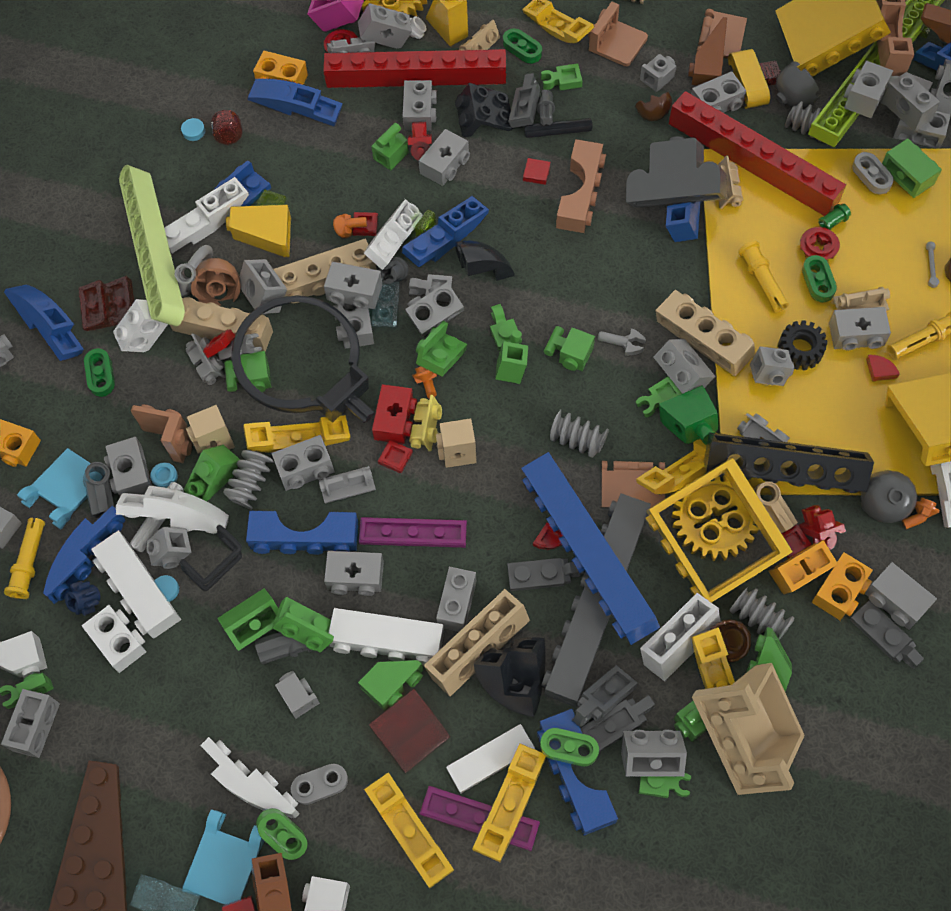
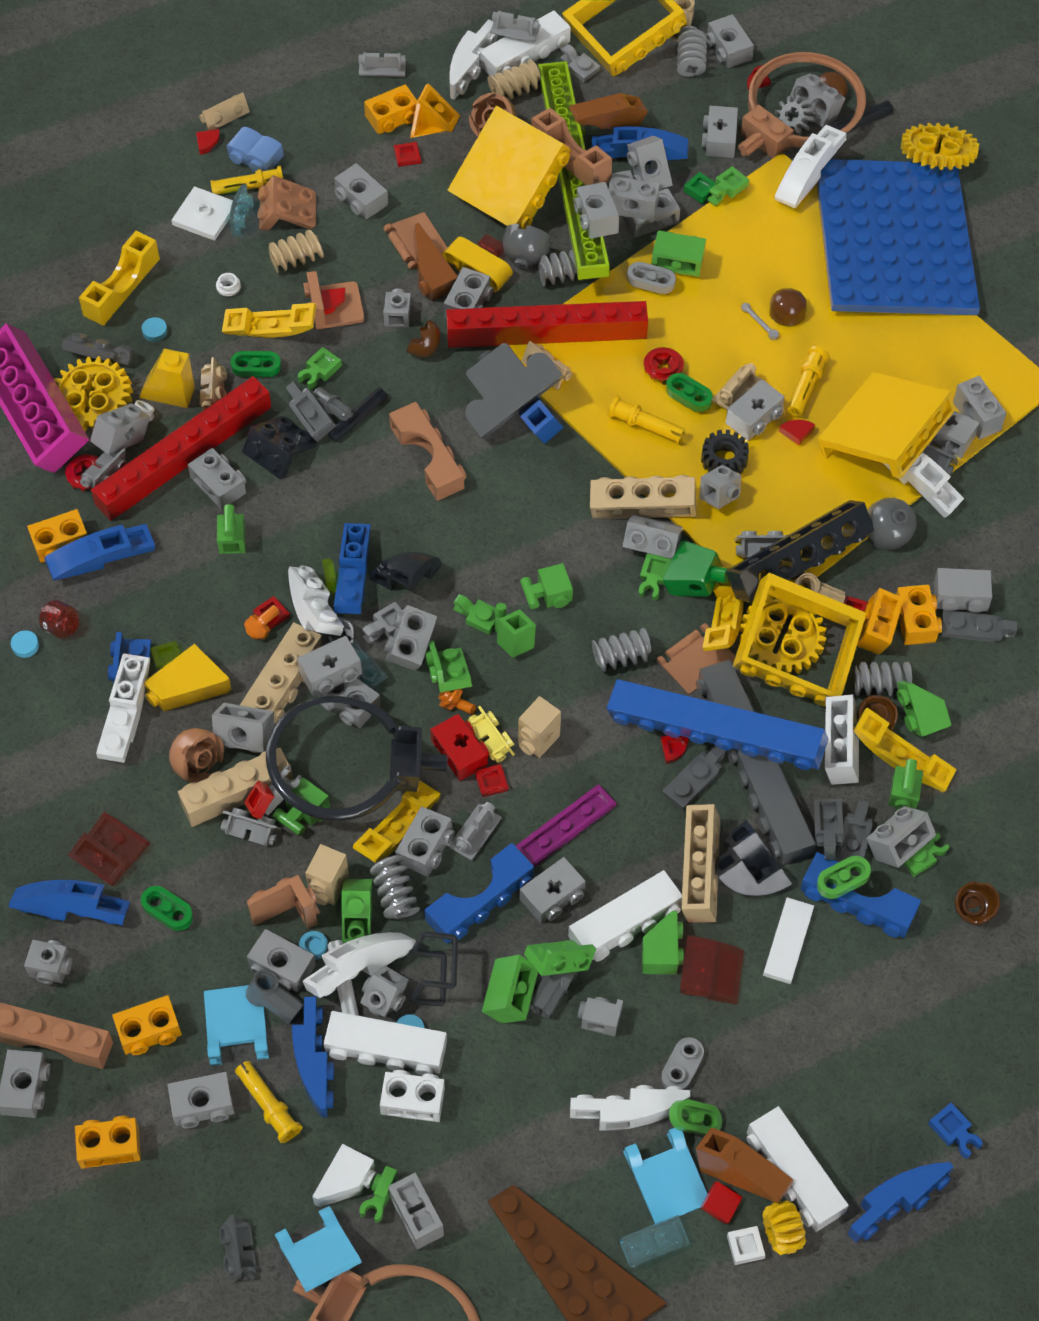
camera: 45 degrees left, 5 degrees down
(82, 598) = (345, 1088): dark blue gear -> none
(137, 329) = (173, 837): white brick -> none
(151, 246) = (110, 763): yellowish green beam -> none
(203, 253) = (173, 773): light grey piece -> none
(409, 830) = (782, 1040): yellow slope -> none
(419, 139) = (251, 505): red hips -> none
(444, 157) = (292, 519): light grey brick -> none
(456, 599) = (653, 845): light grey brick -> none
(471, 815) = (821, 988): magenta tile -> none
(510, 803) = (834, 953): yellow slope -> none
(536, 171) = (375, 464): red tile -> none
(617, 34) = (332, 299): none -> red tile
(623, 341) = (583, 552): light grey bar -> none
(668, 850) = (975, 895): none -> reddish brown hair
(752, 730) = (956, 762): tan windscreen -> none
(821, 525) = (864, 580): red hips -> none
(839, 214) = (656, 329): green pin -> none
(925, 508) = (922, 515): orange plate -> none

